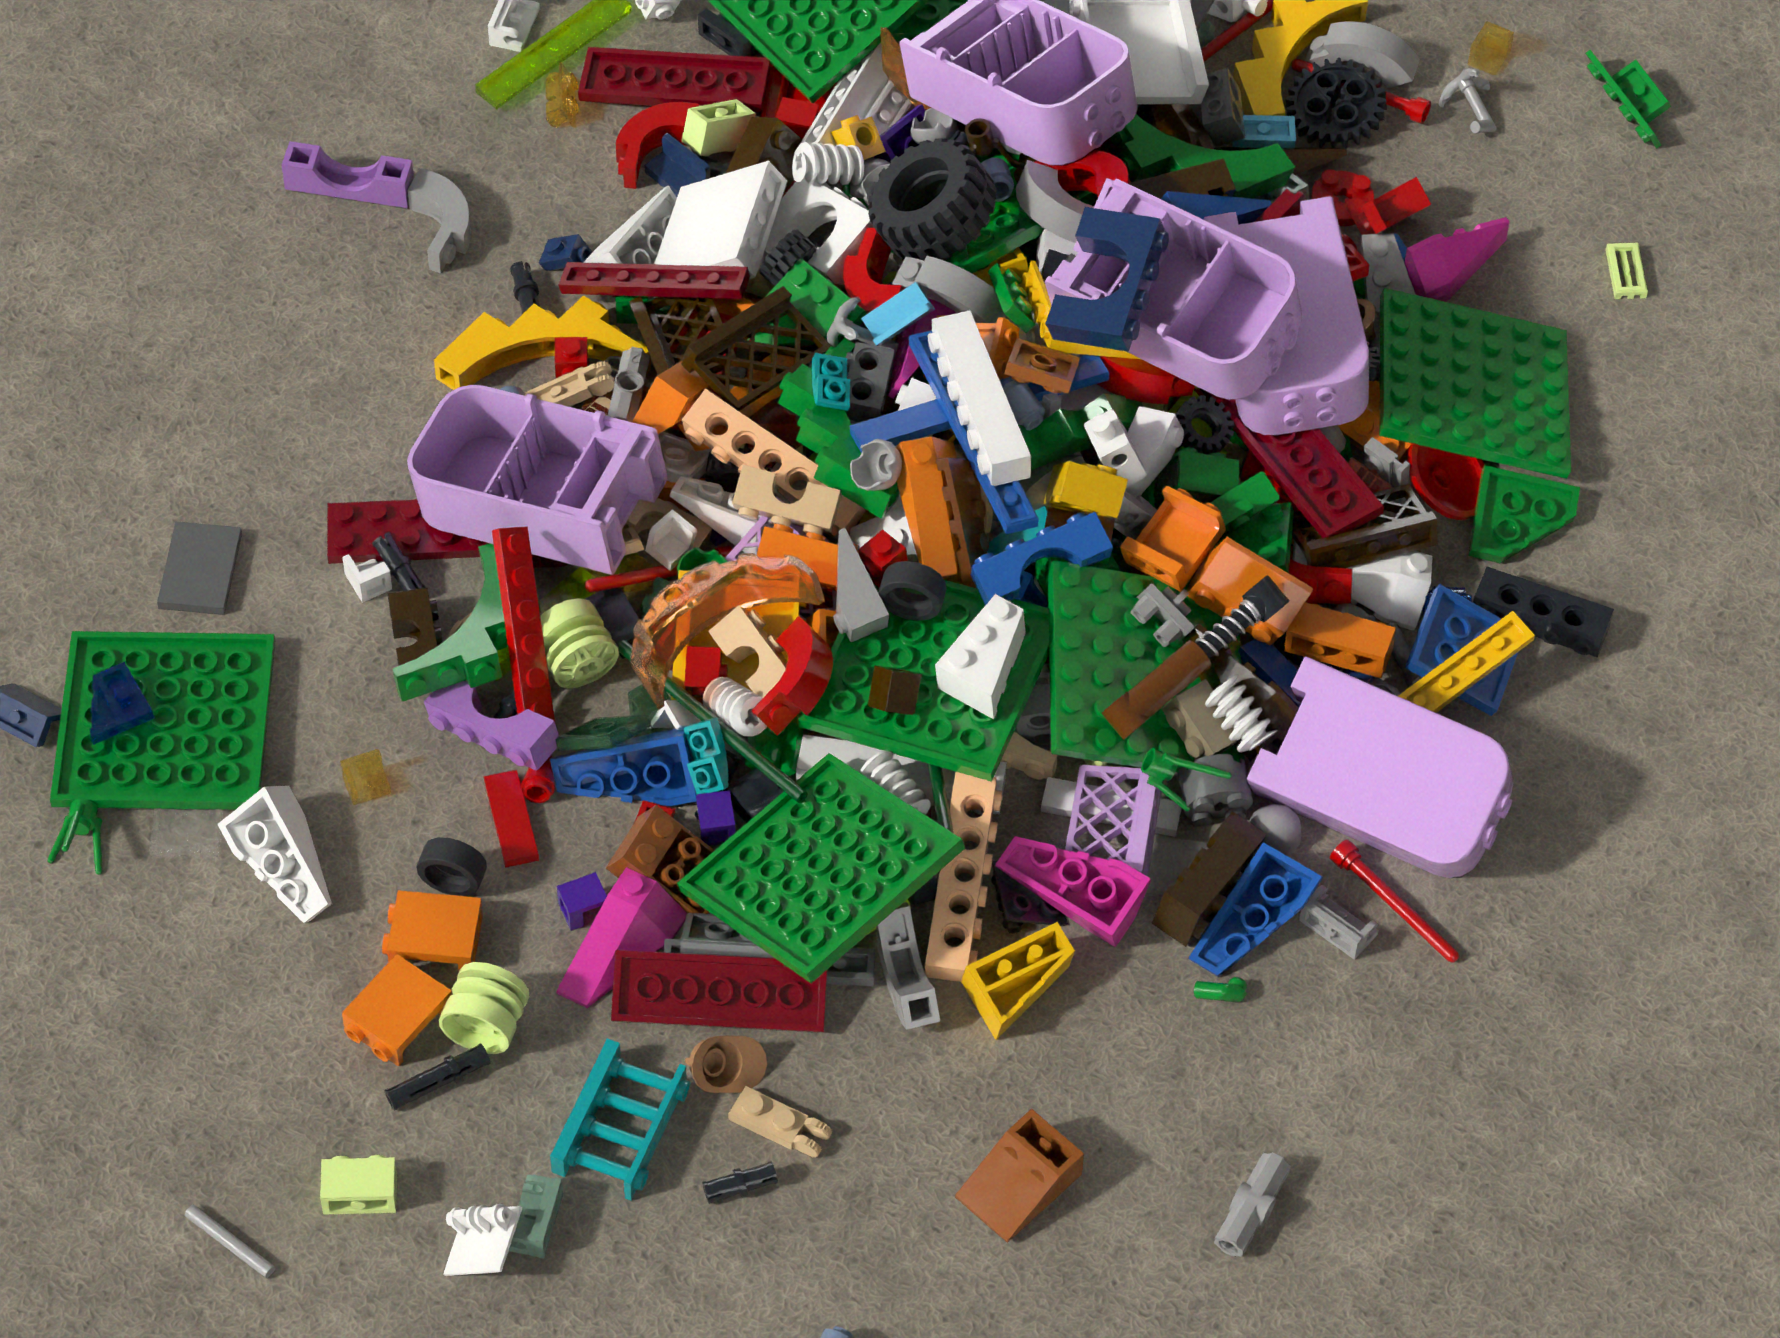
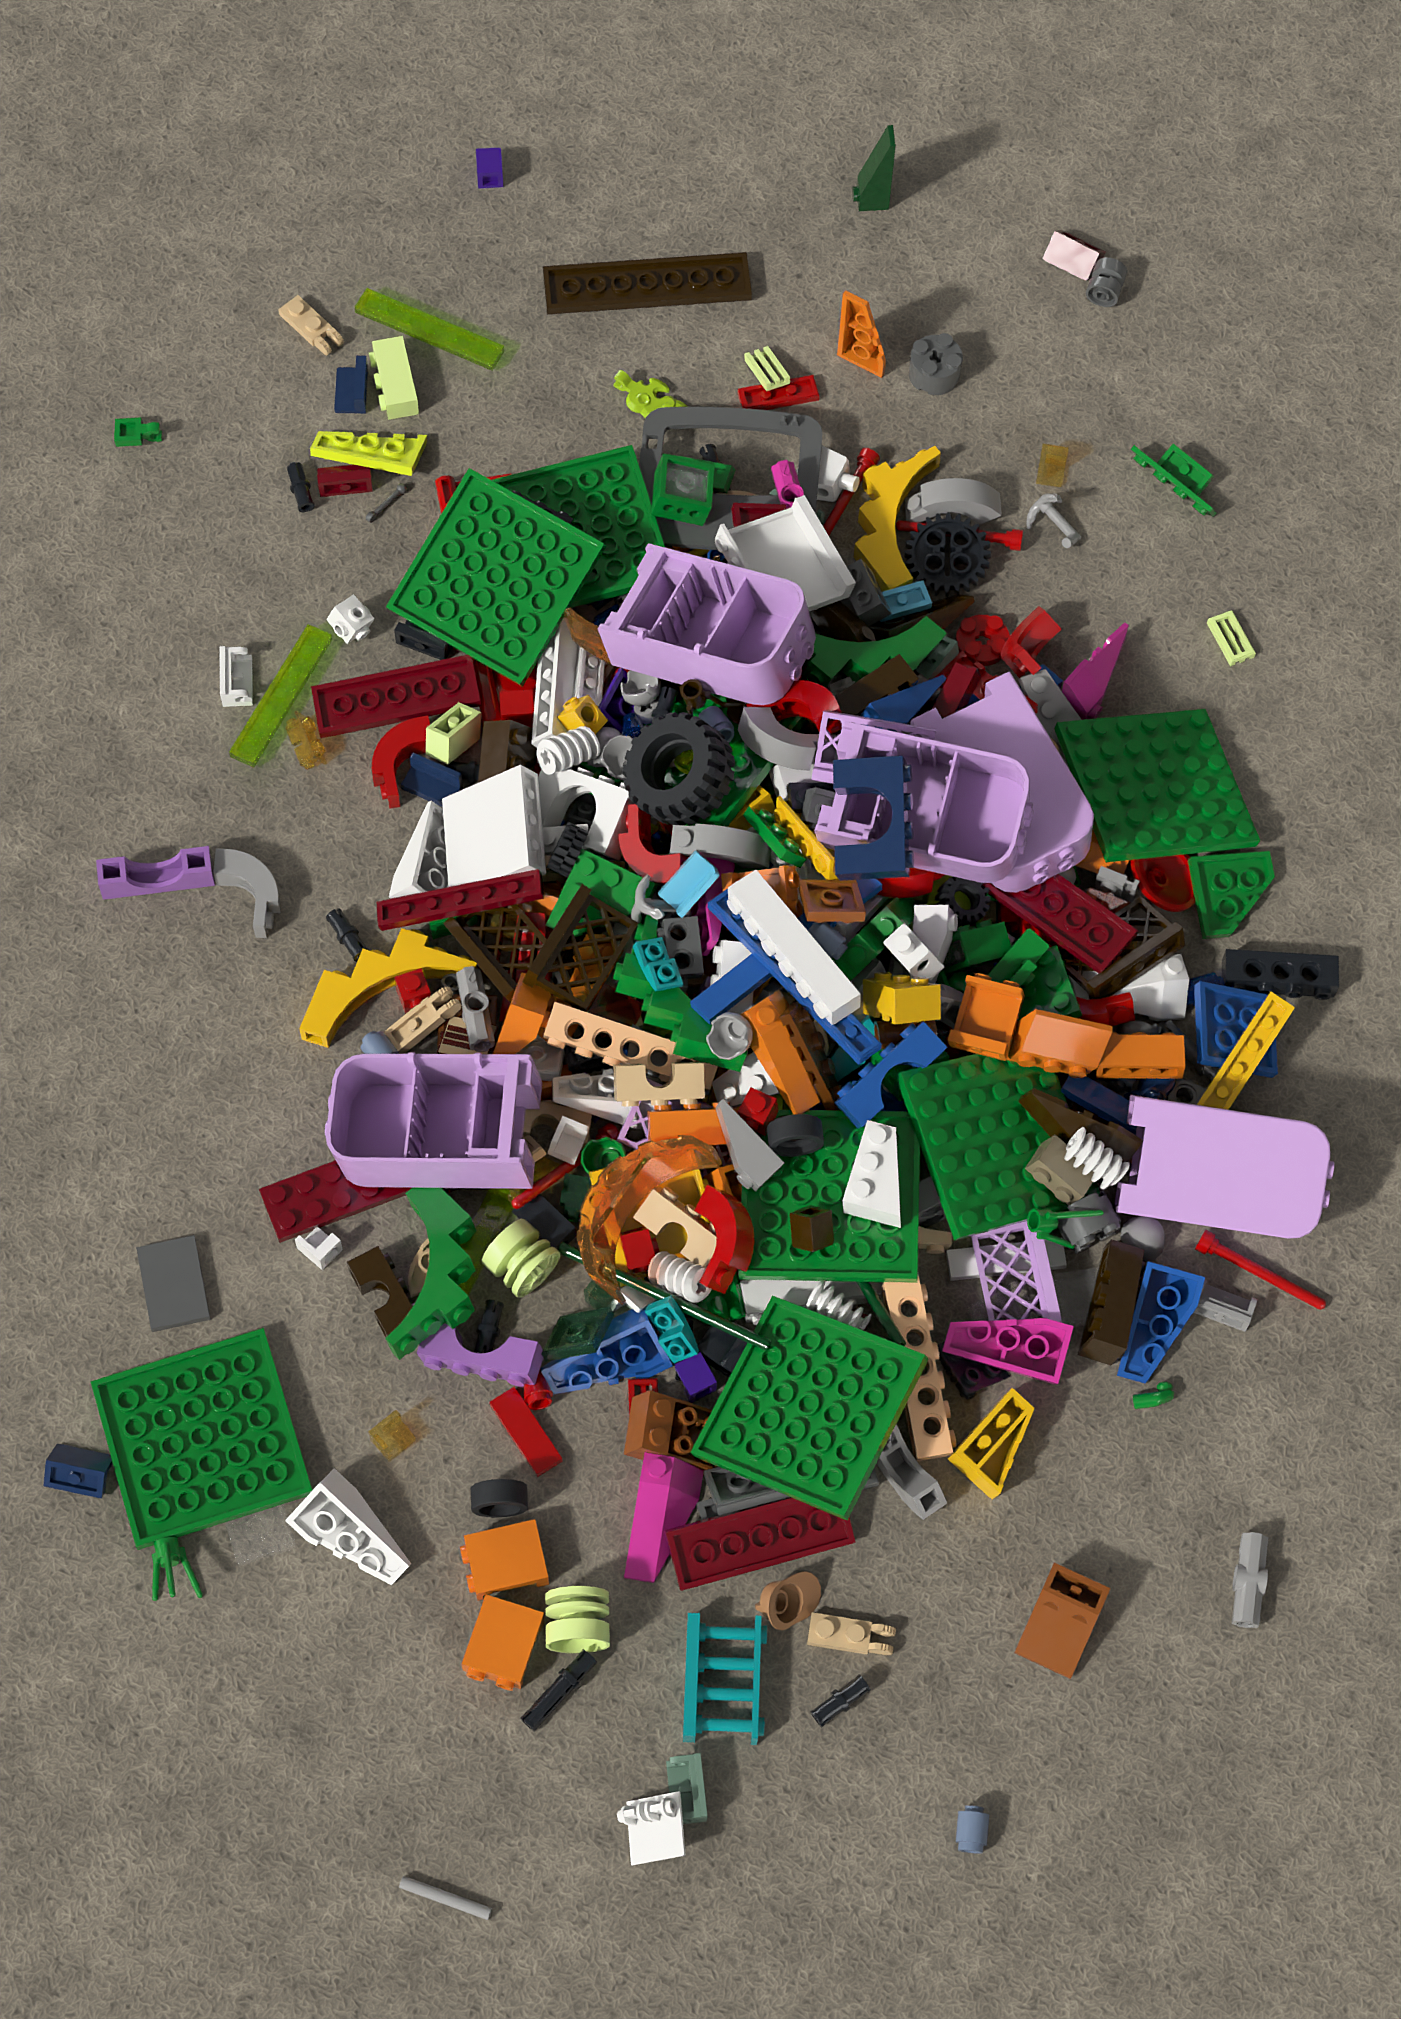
camera: 20 degrees left, 10 degrees up
(116, 703) = (159, 1440): clear blue wing -> none
(358, 1185) = (534, 1811): yellowish green brick -> none
(397, 563) = (343, 1230): black pin -> none
(522, 620) = (478, 1261): red plate -> none
(563, 250) = (367, 889): dark blue bracket -> none
(578, 897) = (615, 1489): dark purple panel -> none
(1168, 609) = (990, 1082): light grey hips -> none
(1192, 659) = (1009, 1182): piece -> none

